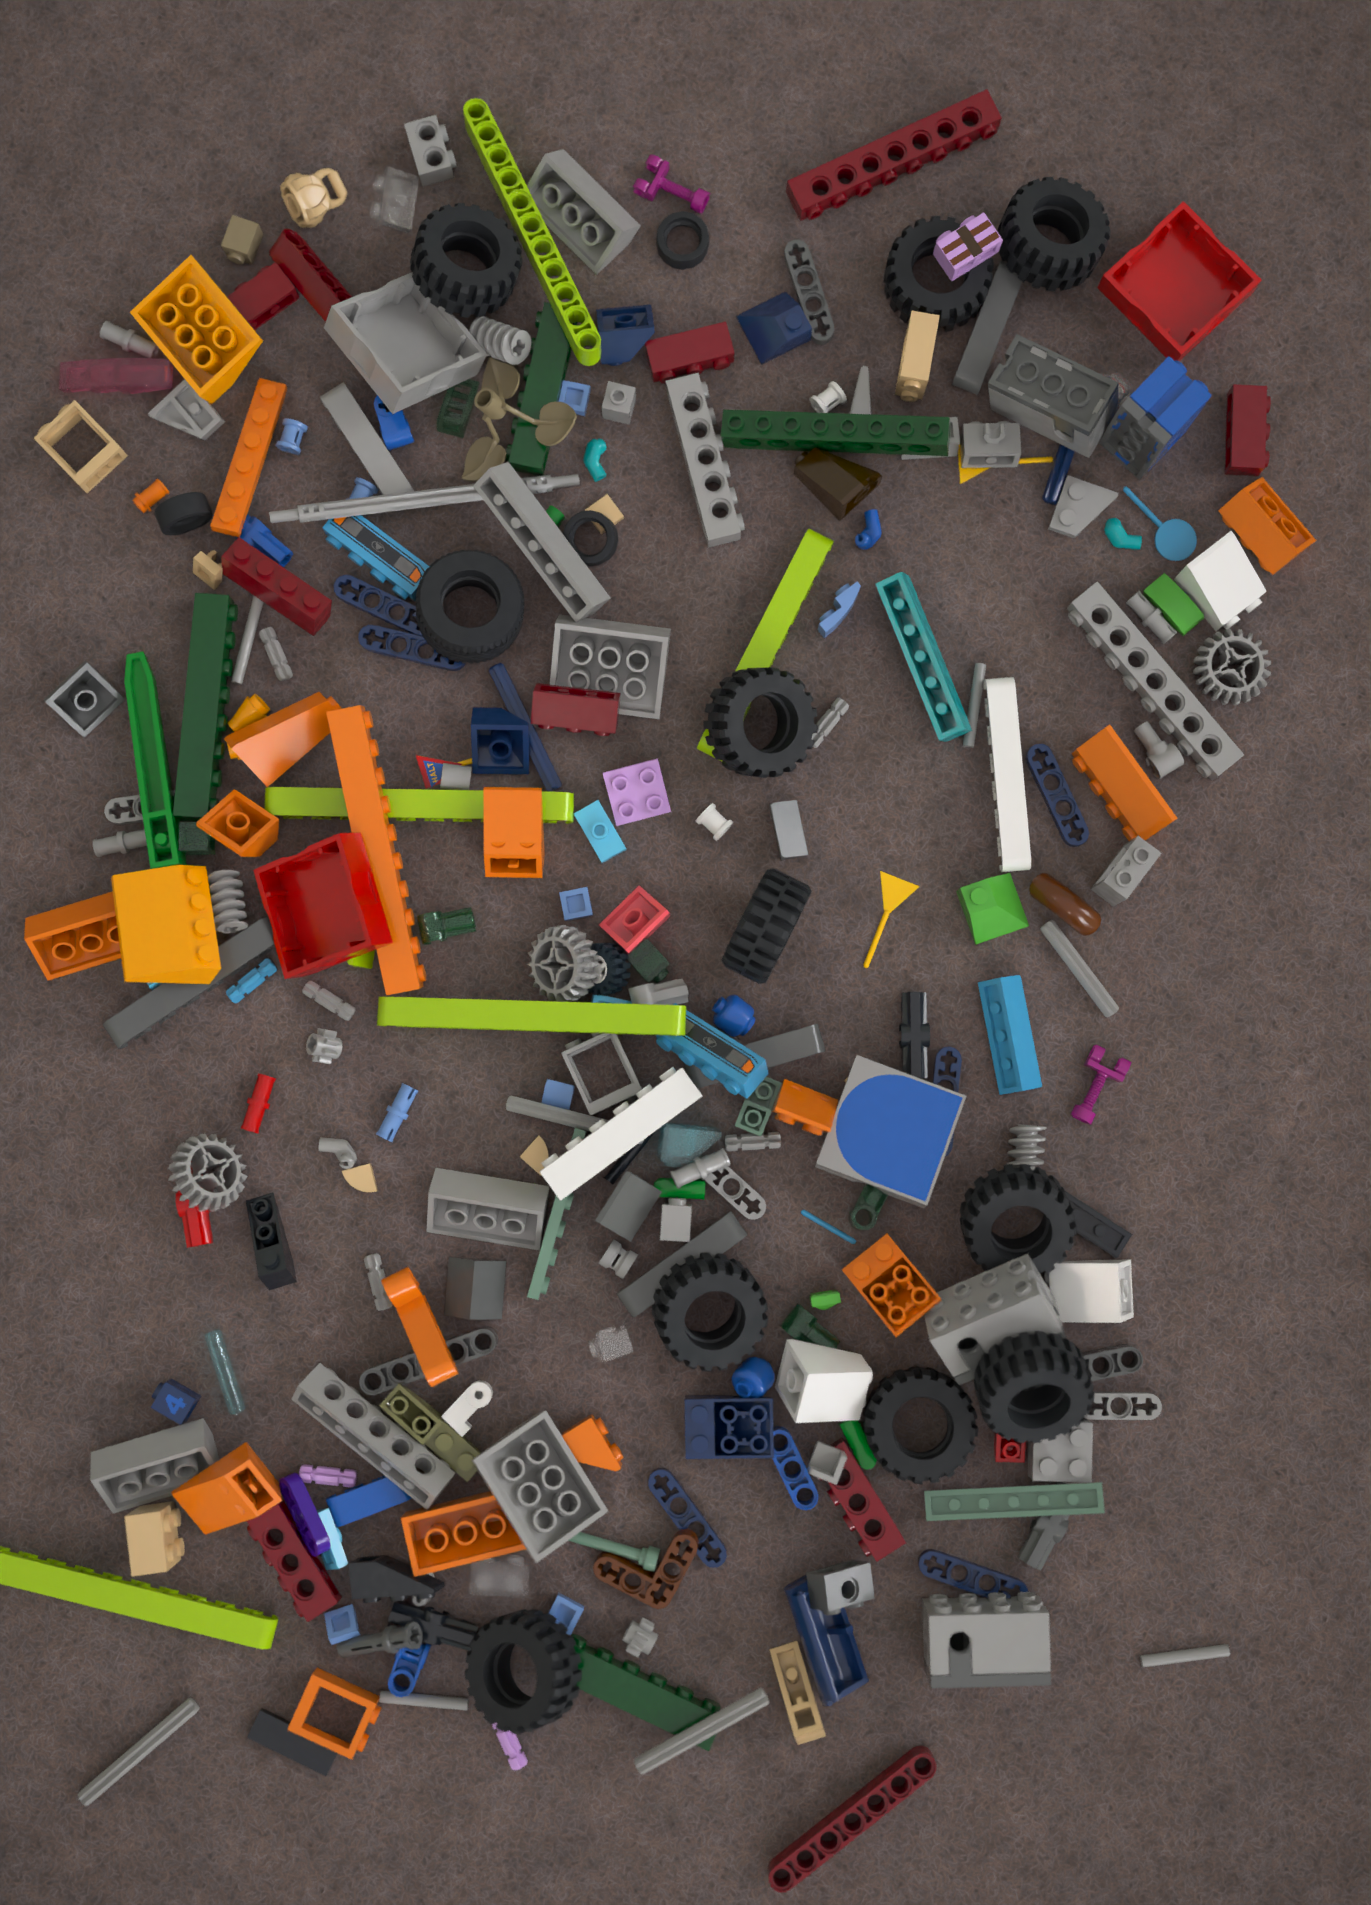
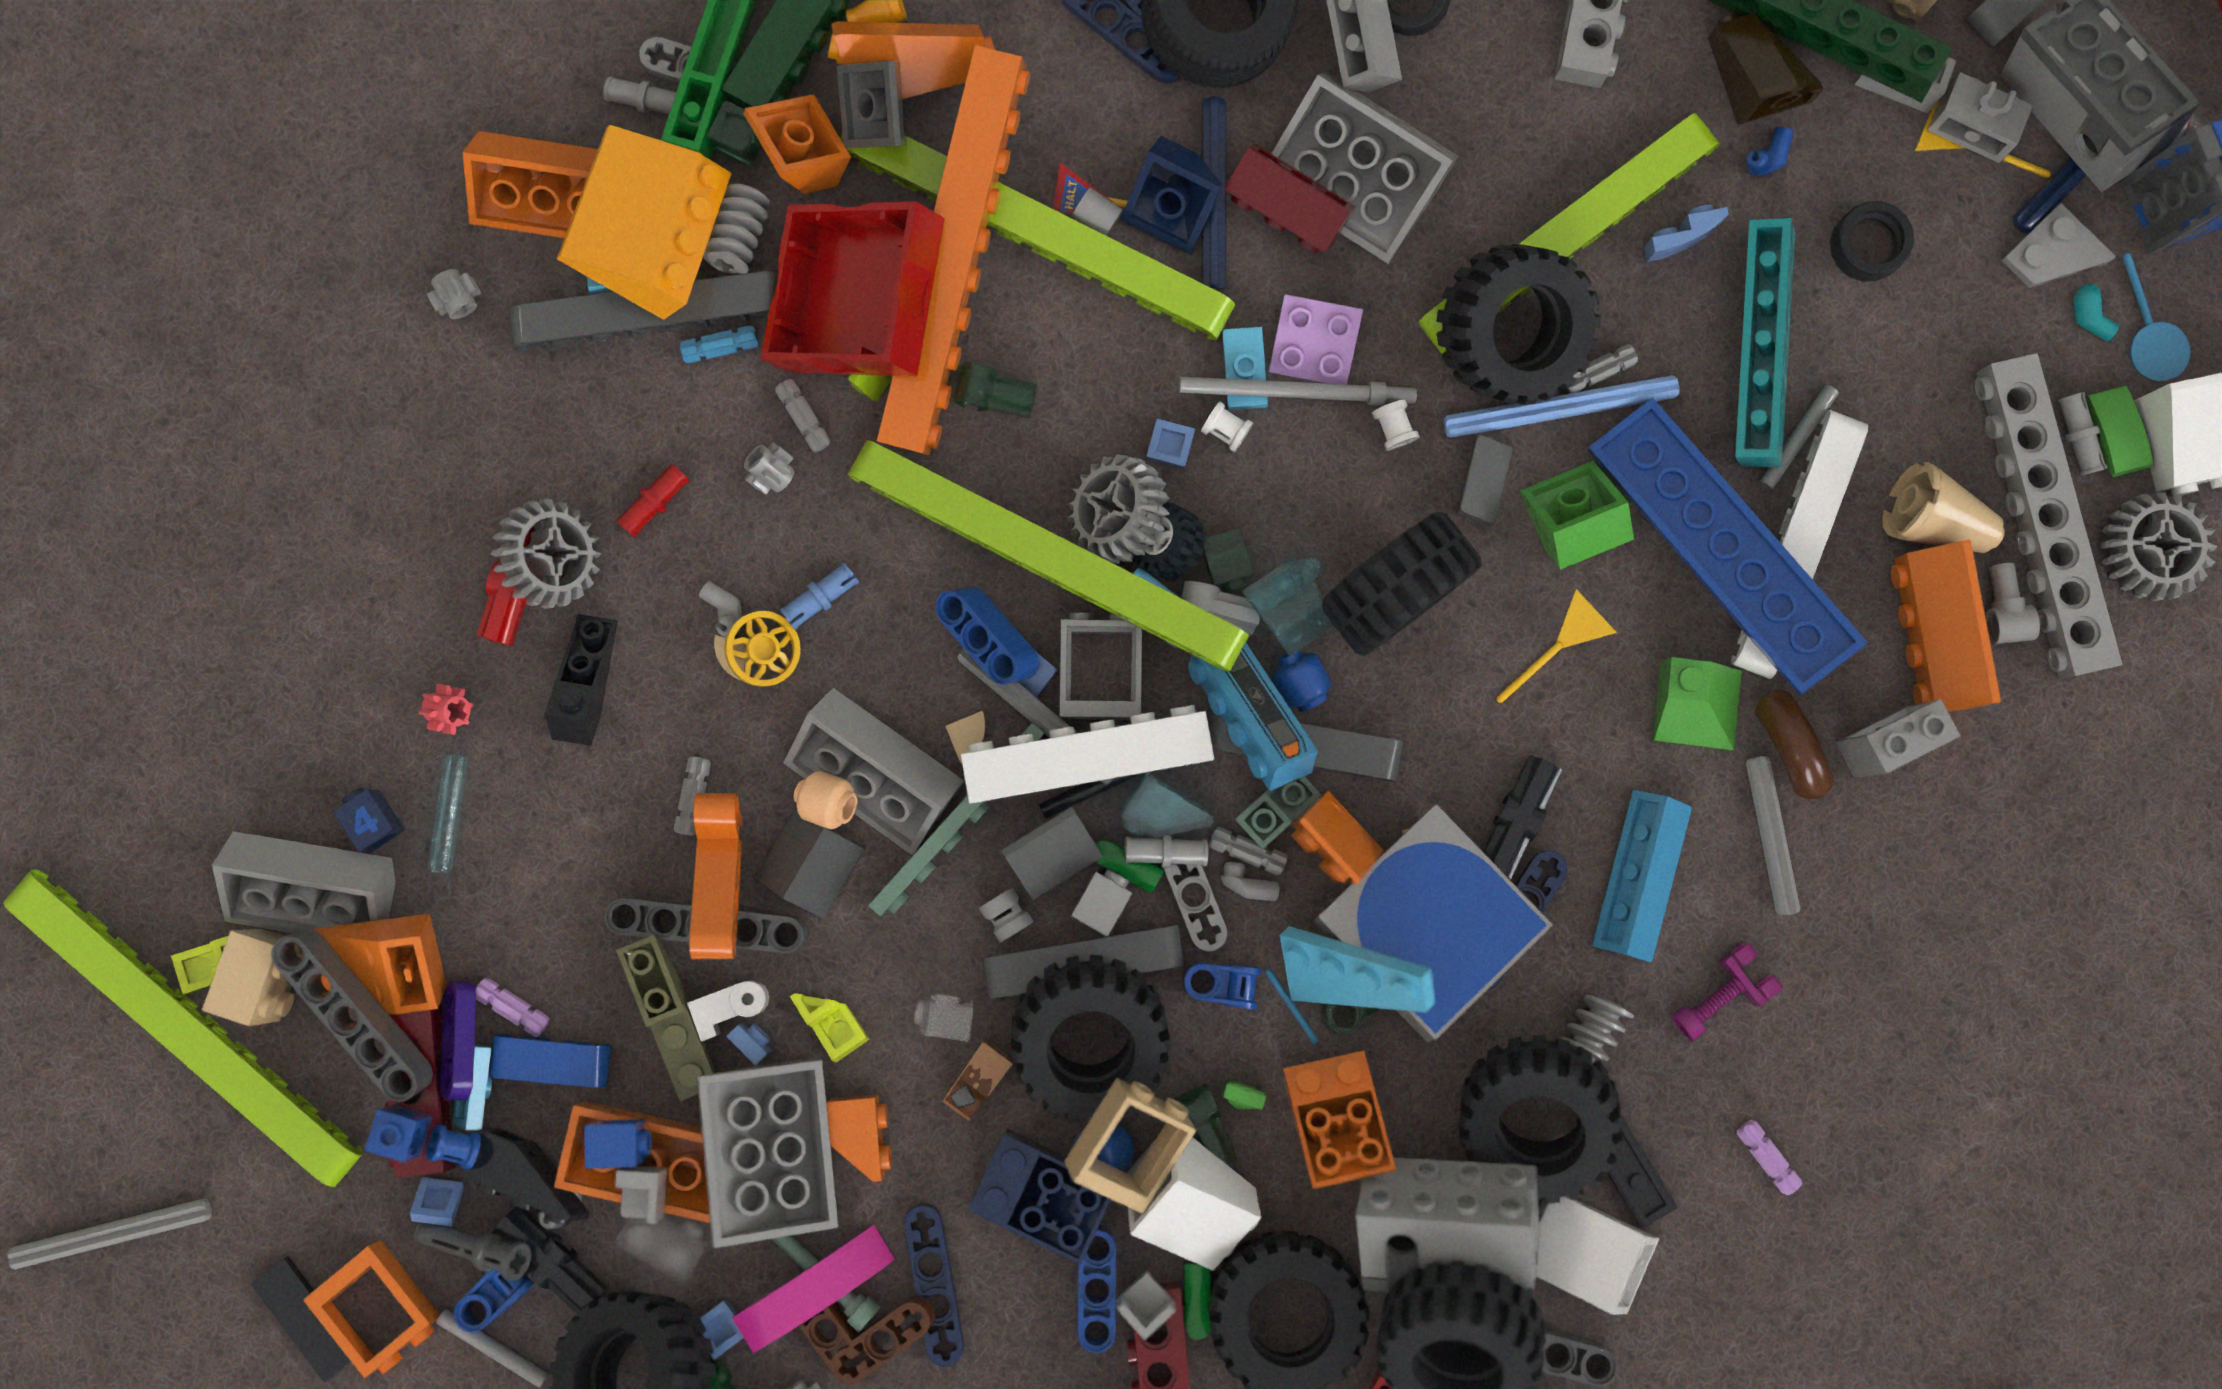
camera: 30 degrees right, 0 degrees up
(61, 1032) = (454, 293): none -> light grey gear
(112, 1548) = (198, 965): none -> neon yellow slope
(190, 1304) = (445, 709): none -> coral gear
(215, 1533) = (332, 1010): none -> dark grey beam
(277, 780) = (871, 104): none -> dark grey slope
(297, 1591) = (398, 1133): none -> blue brick
(336, 1583) = (453, 1146): none -> blue bush
(375, 1450) = (584, 1004): light grey brick -> none
(377, 1165) = (762, 648): none -> yellow wheel
(441, 1528) = (616, 1143): none -> blue brick
(466, 1242) = (825, 800): none -> light nougat head
(472, 1551) = (642, 1192): none -> light grey panel
(494, 1421) = (751, 1042): none -> medium blue plate
(513, 832) = (1136, 312): orange slope -> none
(518, 1085) = (1003, 640): none -> blue beam
(541, 1384) = (832, 1024): none -> neon yellow slope
(606, 875) = (1226, 426): none -> white bush
(611, 1558) = (813, 1289): none -> dark pink slope
(634, 919) = (1236, 499): coral slope -> none
(651, 1373) = (978, 1079): none -> leg
(690, 808) = (1373, 393): none -> light grey bar
(702, 970) = (1291, 603): none -> clear light blue hinge
(763, 1165) = (1247, 887): none -> light grey arm
(768, 1396) = (1113, 1183): none -> tan window
(779, 1234) = (1225, 984): none -> blue piece
(815, 758) = (1561, 406): none -> light blue axle
(855, 1190) = (1352, 976): none -> medium azure wing
(858, 823) = (1578, 514): none -> bright green slope
(961, 799) = (1727, 547): none -> blue plate
(973, 540) = (1891, 218): none -> black tyre
(1062, 793) = (1857, 602): dark blue beam -> none
(1086, 712) = (1940, 511): none -> tan cone
(1174, 1174) = (1769, 1157): none -> lavender axle

